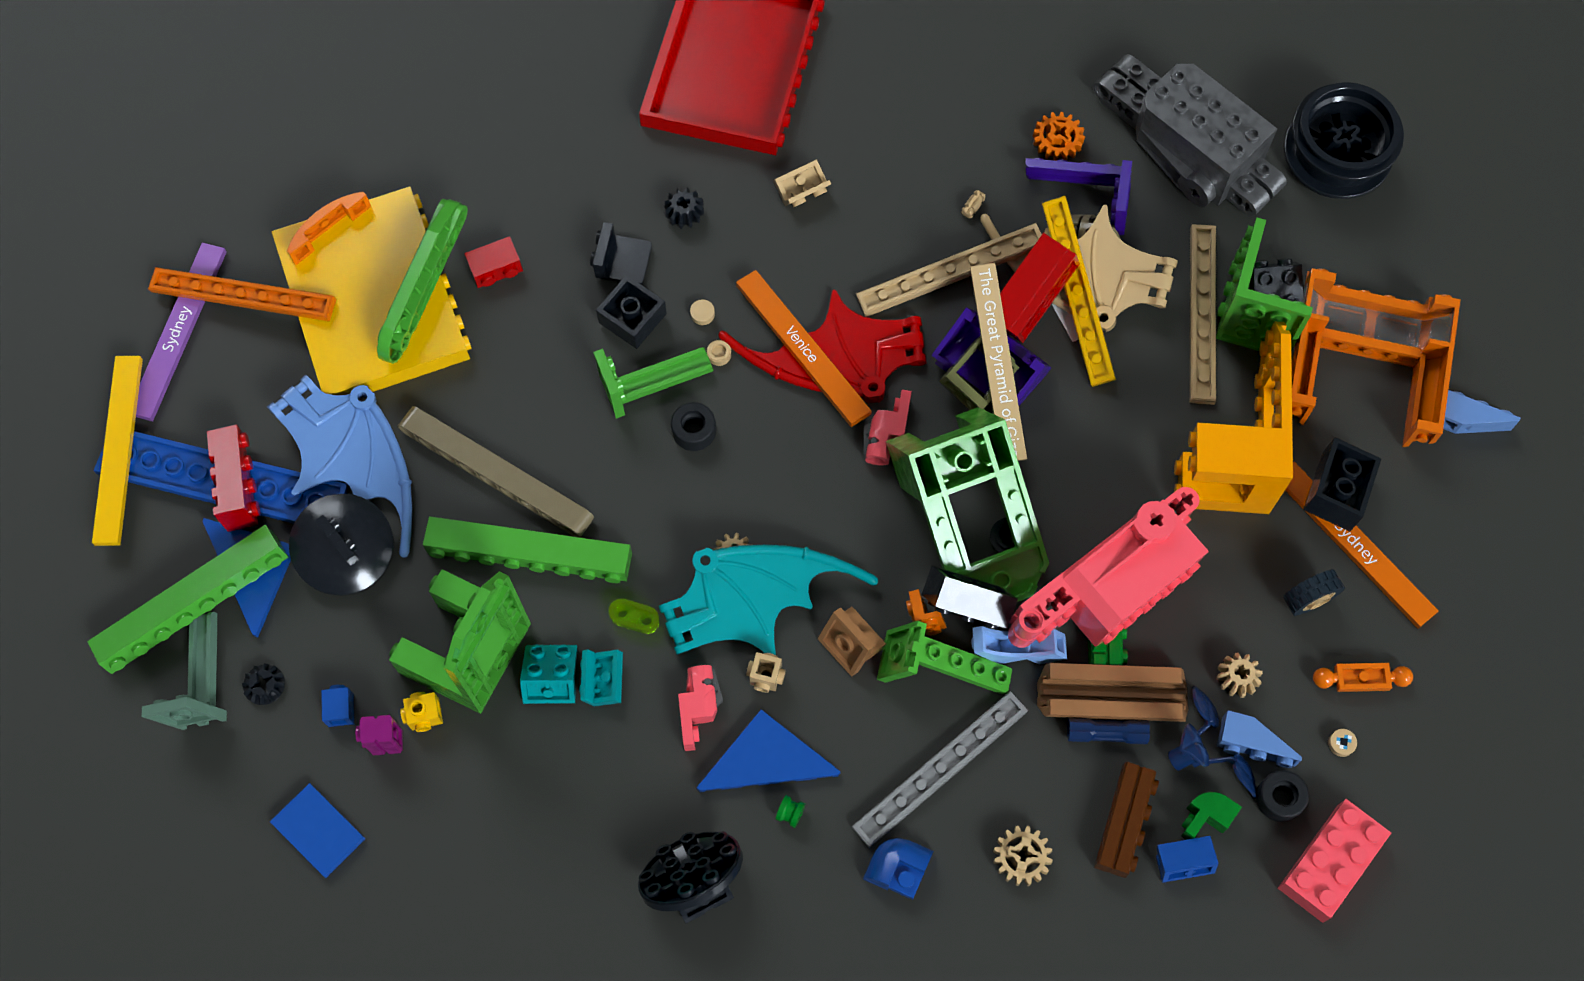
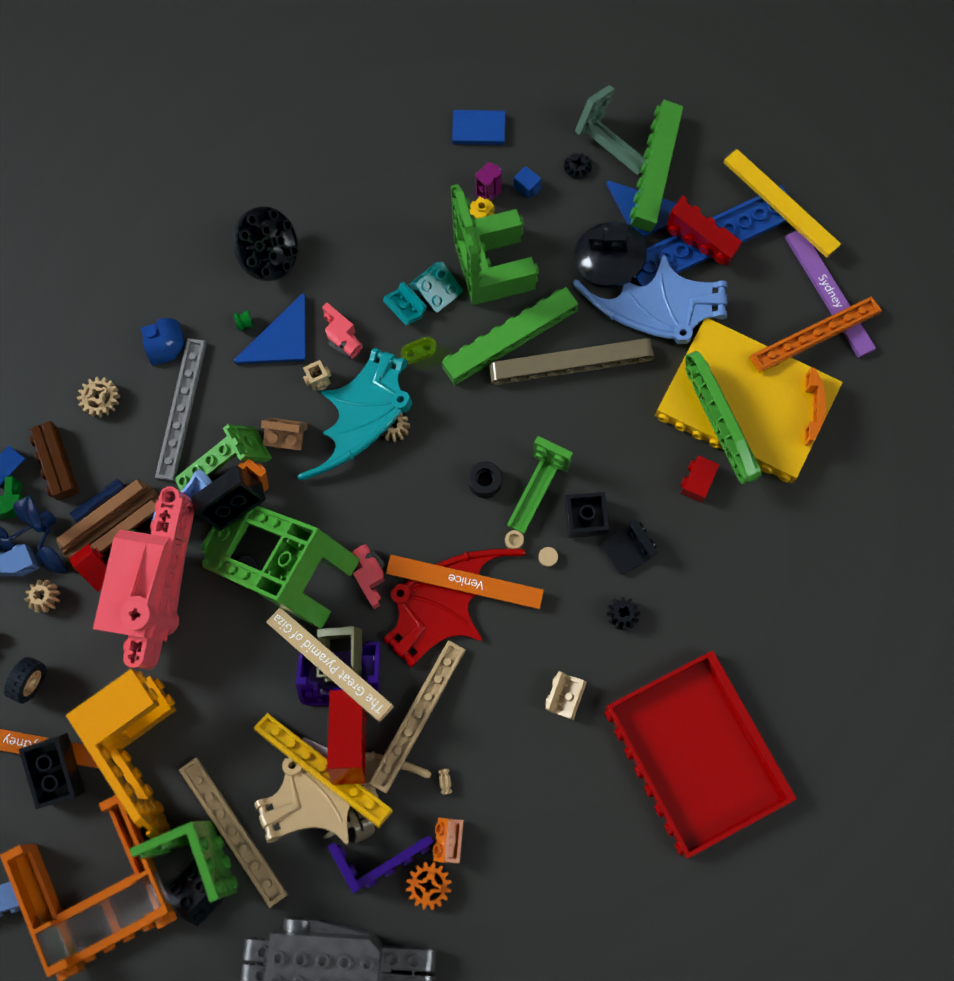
camera: 140 degrees right, 5 degrees up
(1012, 154) = (448, 840): none -> orange bracket
(1164, 652) = (90, 565): none -> red brick

